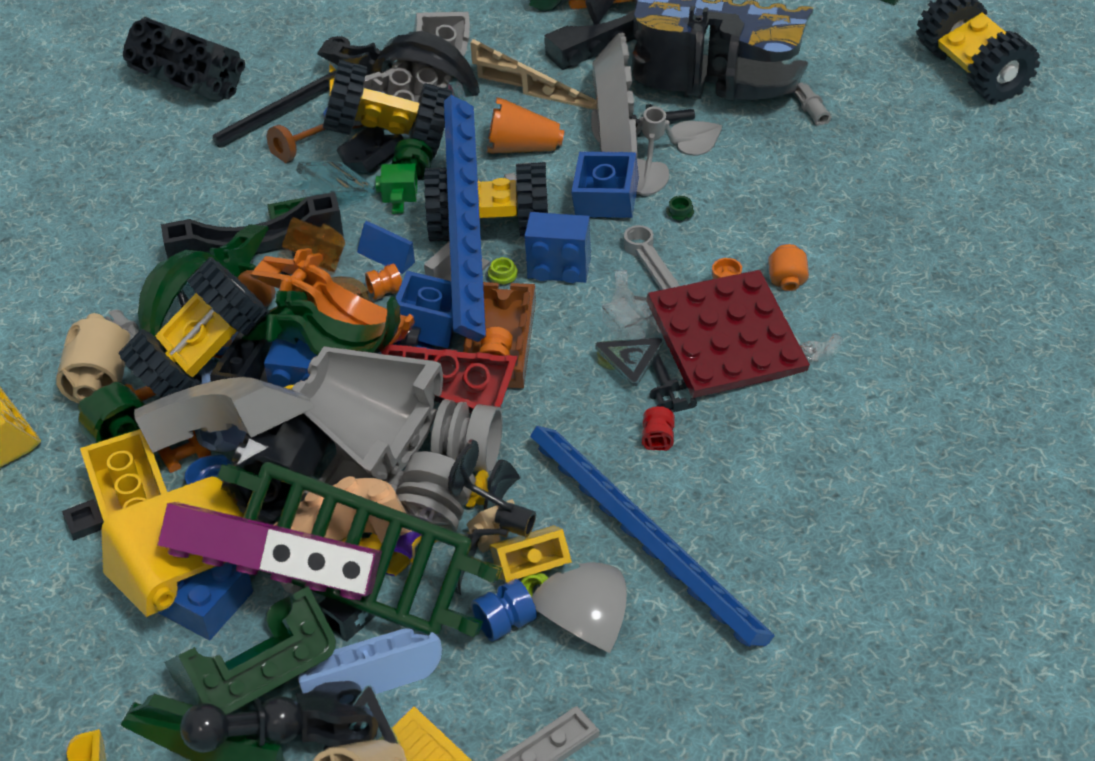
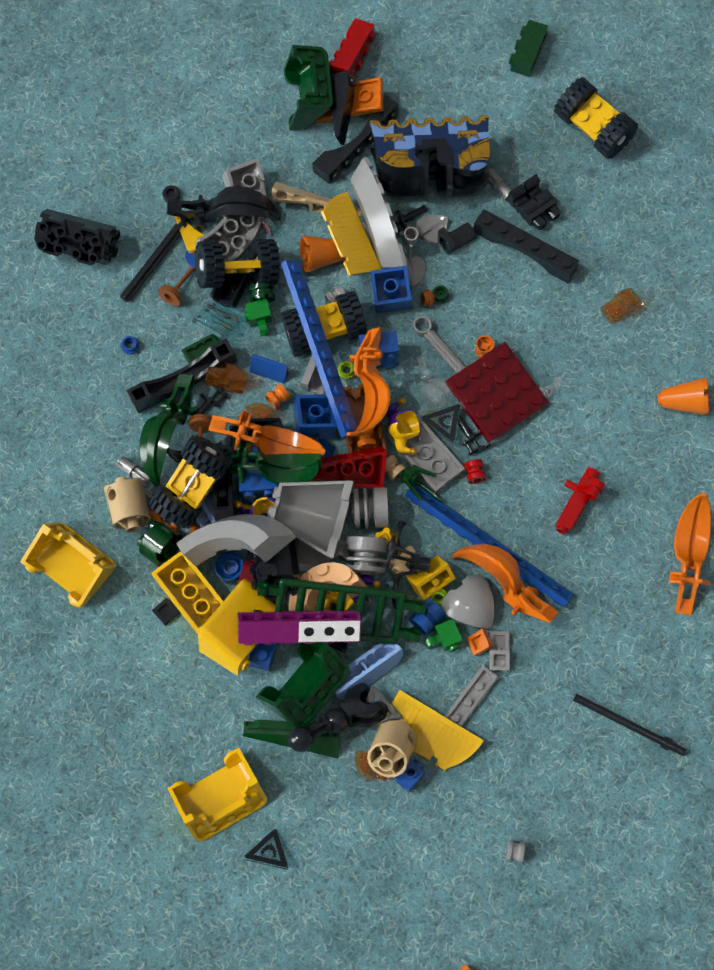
camera: 15 degrees left, 25 degrees up
(198, 189) = (127, 340): none -> blue plate
(525, 399) = (393, 468): none -> tan wheel
(527, 646) = (446, 635): none -> green brick
(530, 268) = (375, 388): none -> orange piece
(553, 415) = (411, 476): none -> dark green plant
(558, 342) = (403, 426): none -> yellow piece
(565, 114) = (350, 236): none -> yellow piece
(582, 668) = (479, 642): none -> orange plate
(586, 393) = (432, 456): none -> light grey plate
(613, 690) = (499, 655): none -> light grey slope
(658, 208) = (427, 298): none -> dark orange plate
(663, 571) = (506, 571): none -> orange piece
(719, 153) = (455, 239): none -> black bracket
(788, 267) = (519, 330): orange head -> none
(818, 500) = (587, 488): none -> red piece
(856, 128) = (537, 206): none -> black hips
(868, 193) = (550, 258): none -> black arch
(968, 261) = (623, 303): none -> clear orange brick
(1006, 601) = (691, 549): none -> orange piece
(1045, 393) = (687, 397): none -> orange cone

